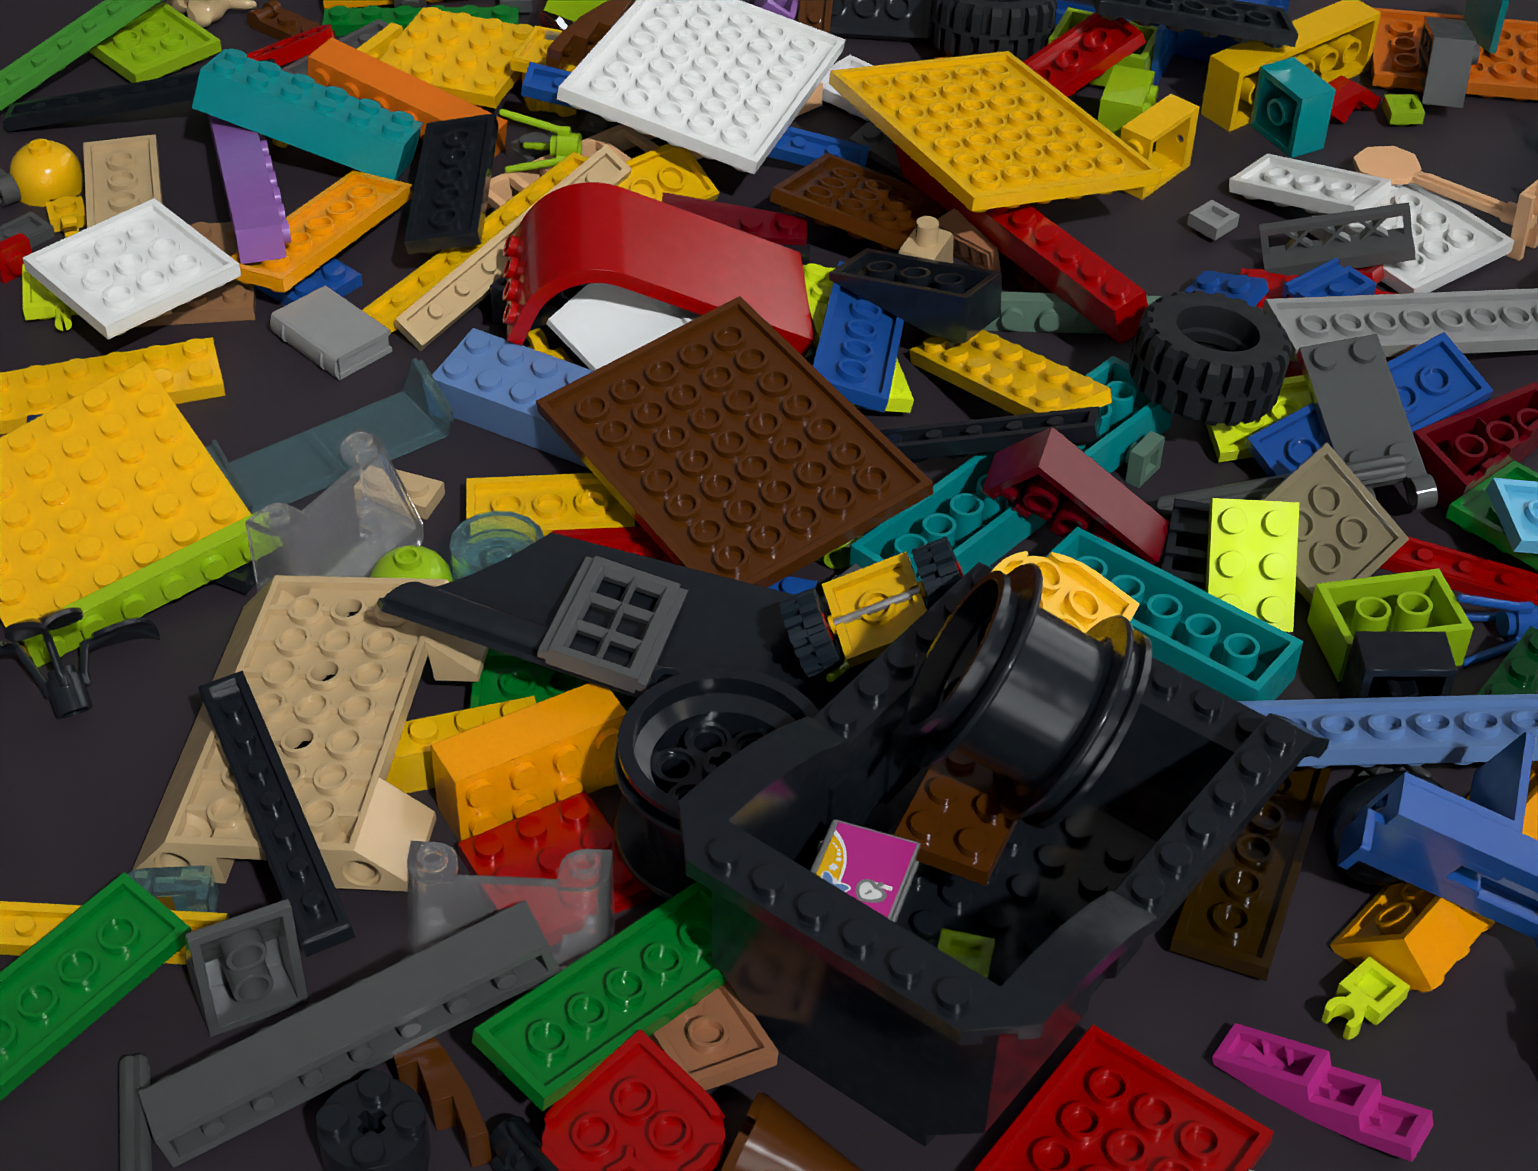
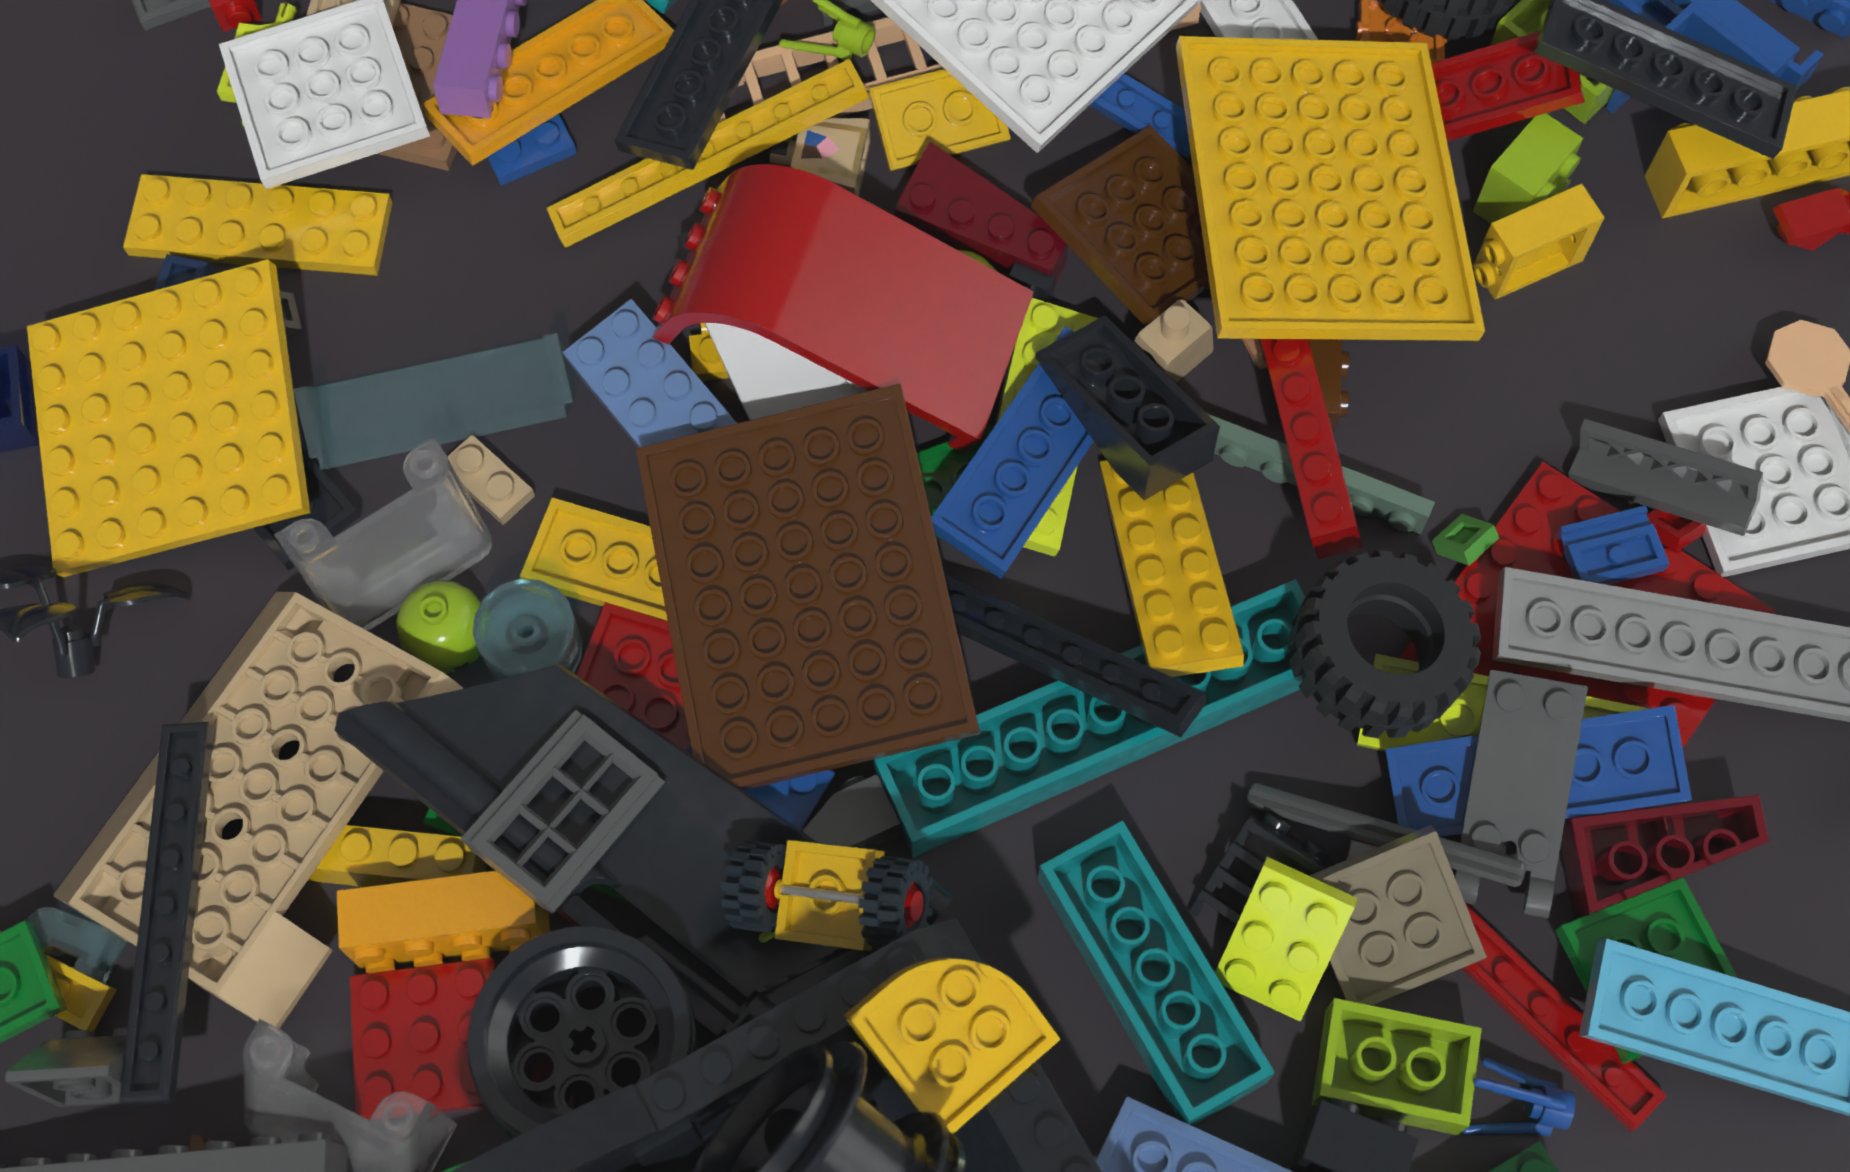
camera: 25 degrees right, 25 degrees up
(150, 588) = (171, 553): lime plate -> none
(331, 332) = (508, 226): light grey piece -> none
(472, 279) = (679, 204): tan plate -> none
(1073, 491) = (1137, 791): dark red wedge -> none
(1144, 459) = (1268, 720): sand green plate -> none
(1213, 219) = (1552, 371): light grey plate -> none
(1234, 286) = (1499, 499): blue plate -> none
(1292, 107) = (1743, 226): teal brick -> none
(1308, 185) = (1692, 365): white plate -> none

